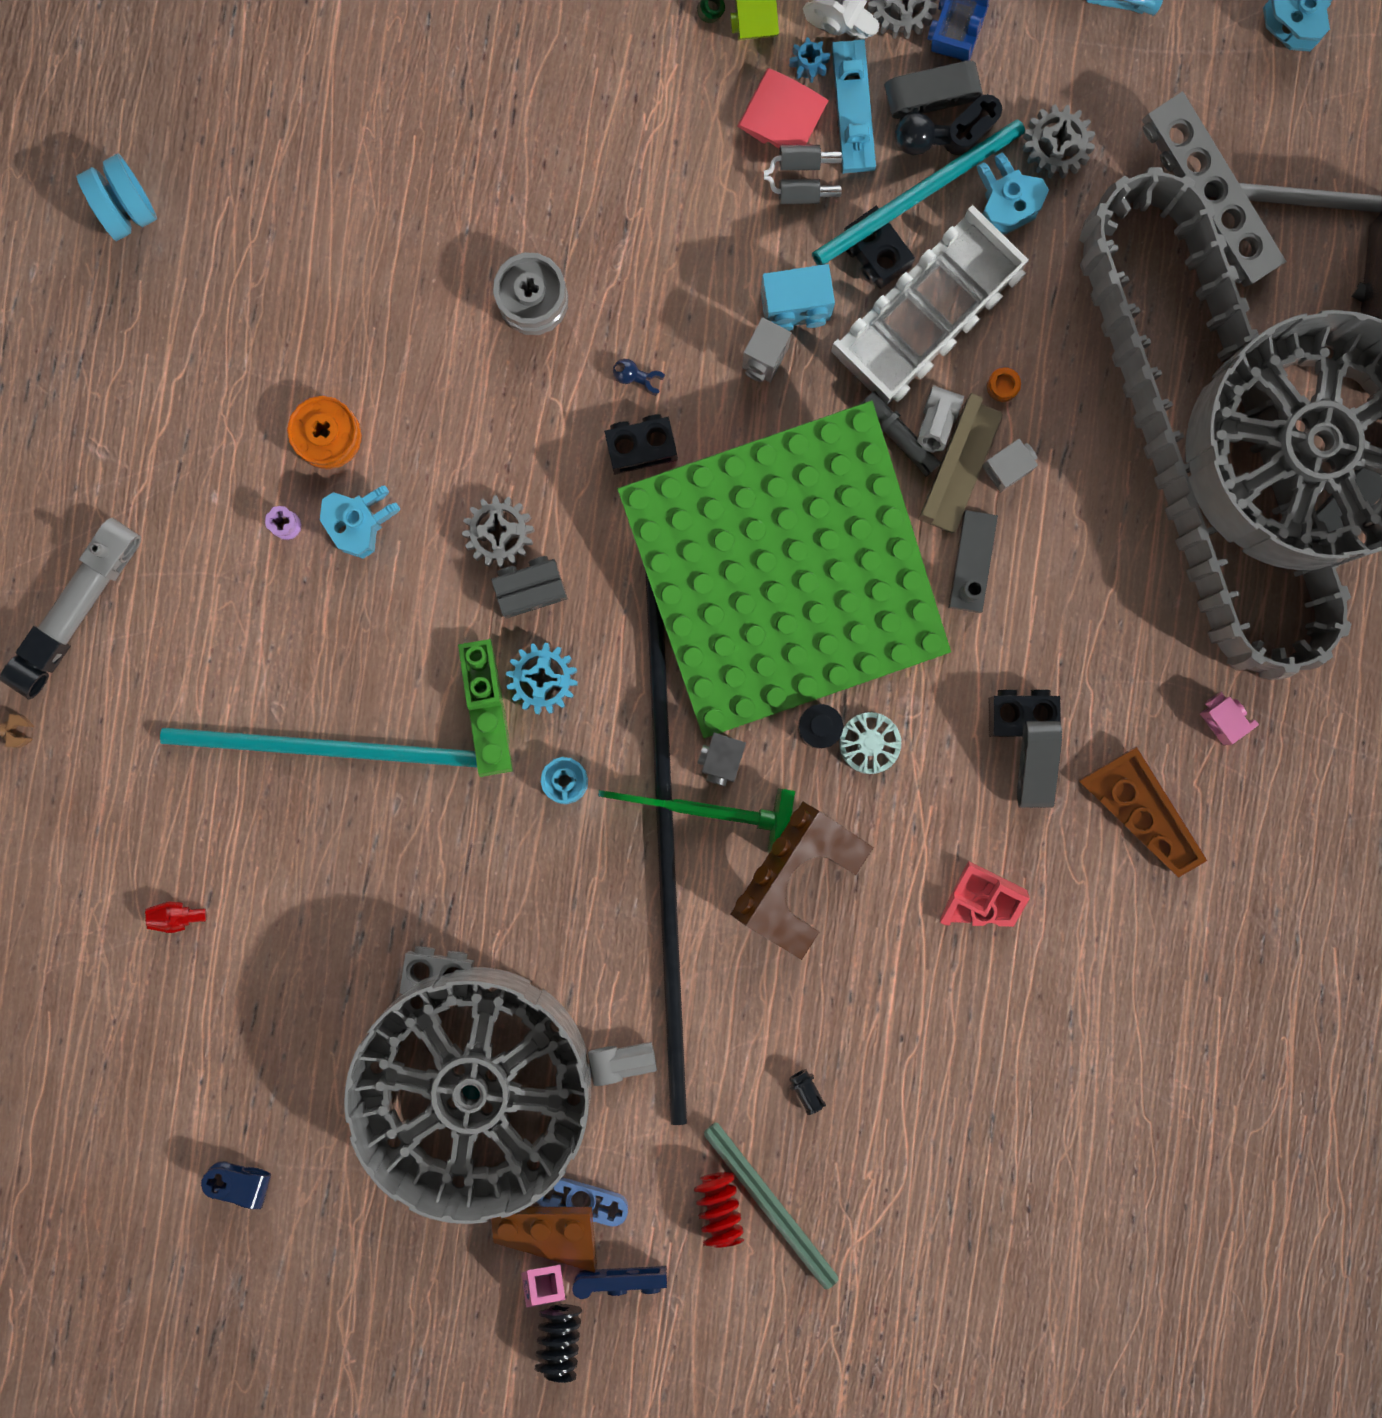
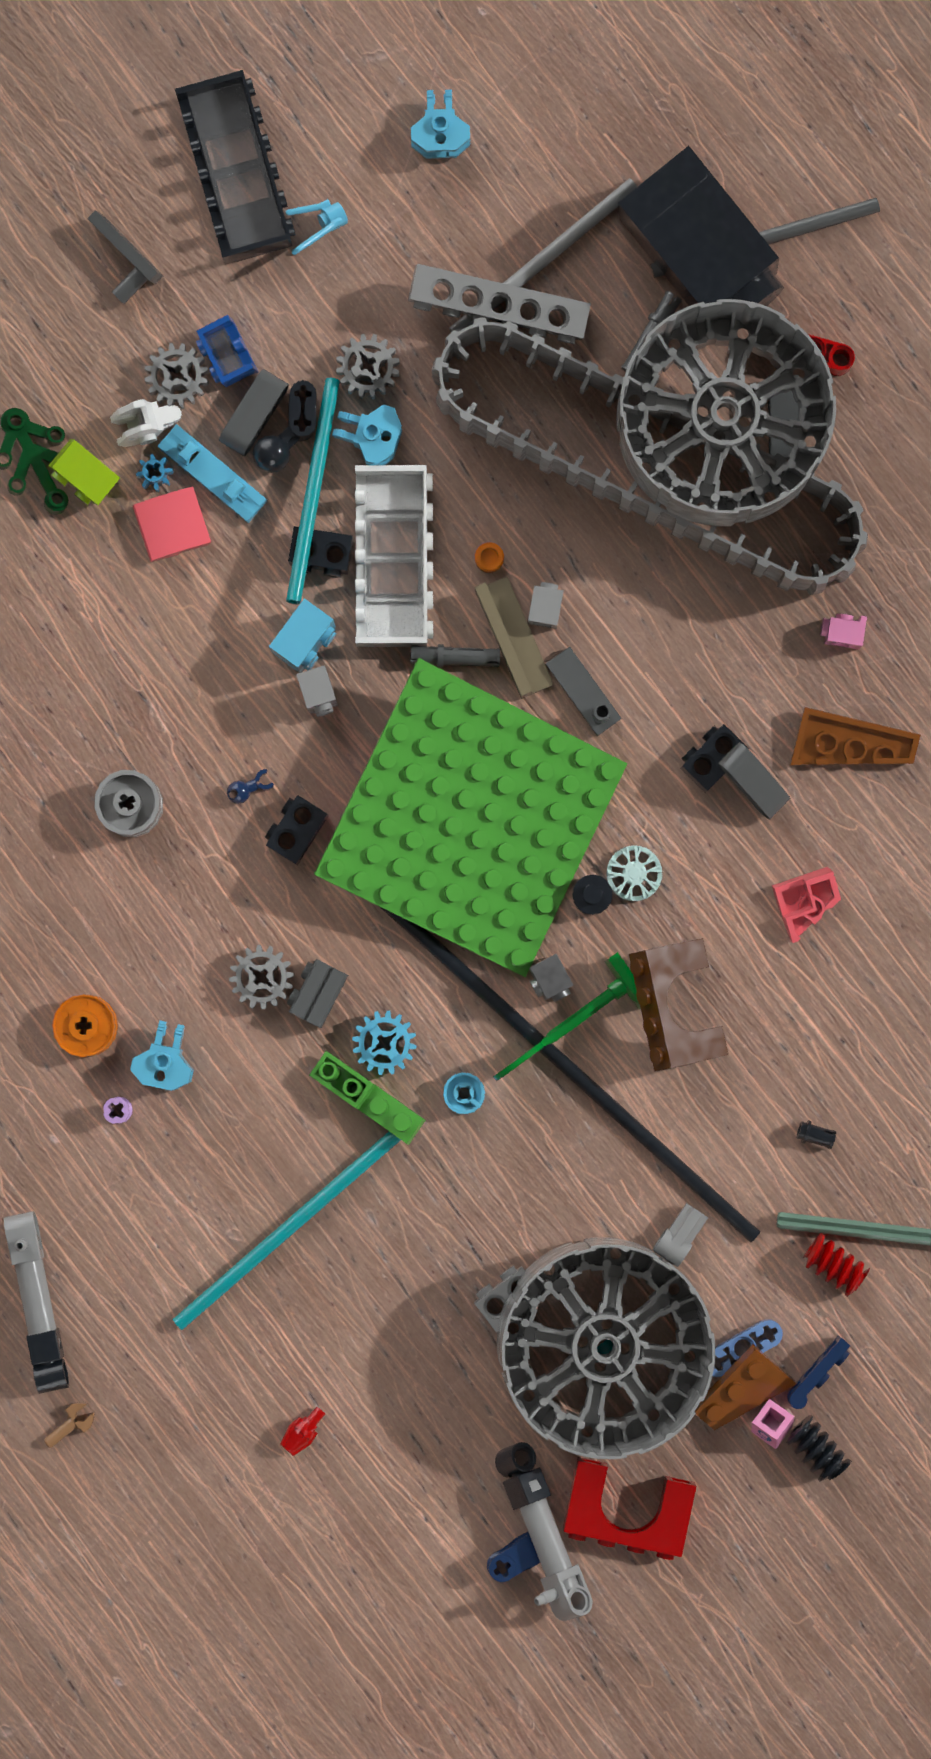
camera: 45 degrees left, 0 degrees up
(296, 1146) = (528, 1493): none -> light grey piece
(369, 1283) = (663, 1534): none -> red arch
(802, 158) = (215, 542): dark grey piece -> none
(940, 414) = (468, 618): light grey piece -> none

